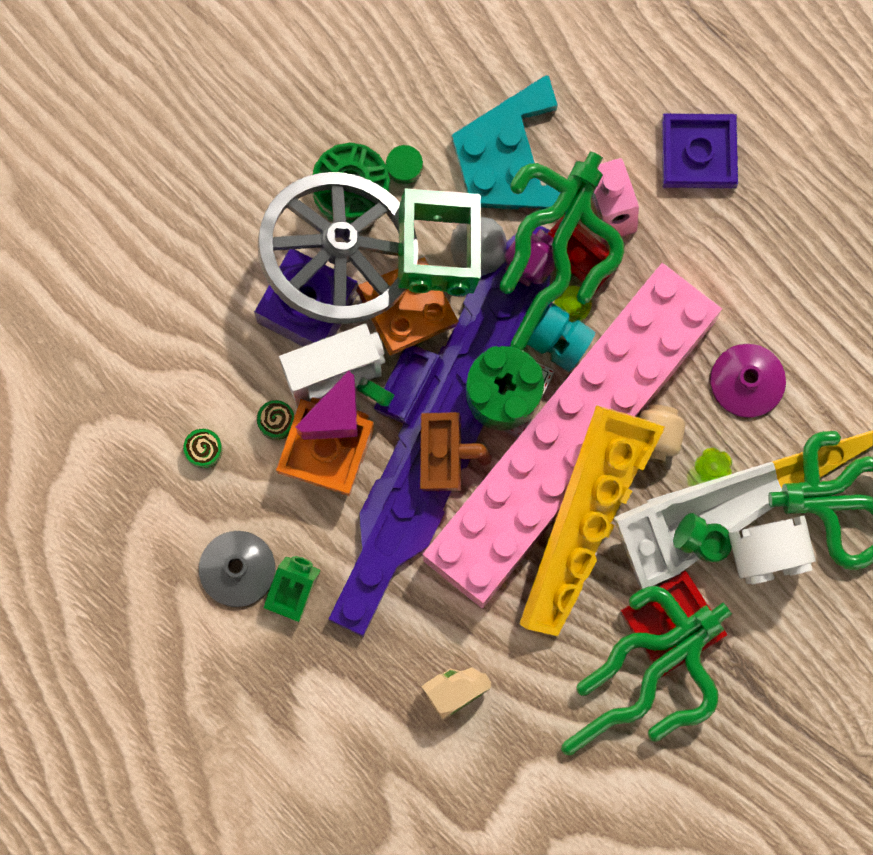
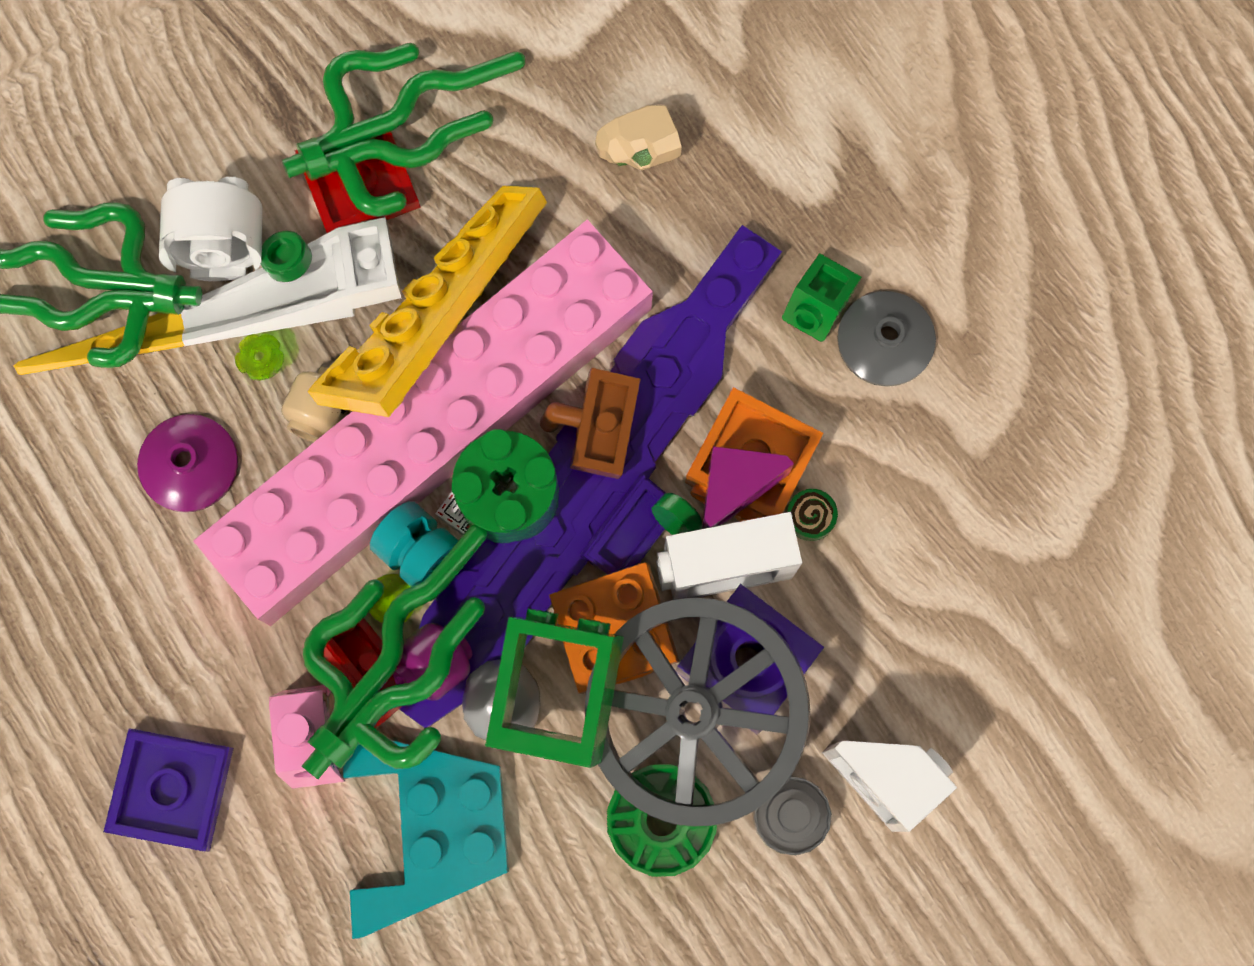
camera: 170 degrees left, 0 degrees up
(194, 233) = (894, 779): none -> white slope
(203, 448) = (912, 494): tile -> none
(253, 199) = (794, 818): none -> dark grey plate
(404, 164) = (581, 842): green tile -> none
(690, 533) = (309, 263): green tile -> none

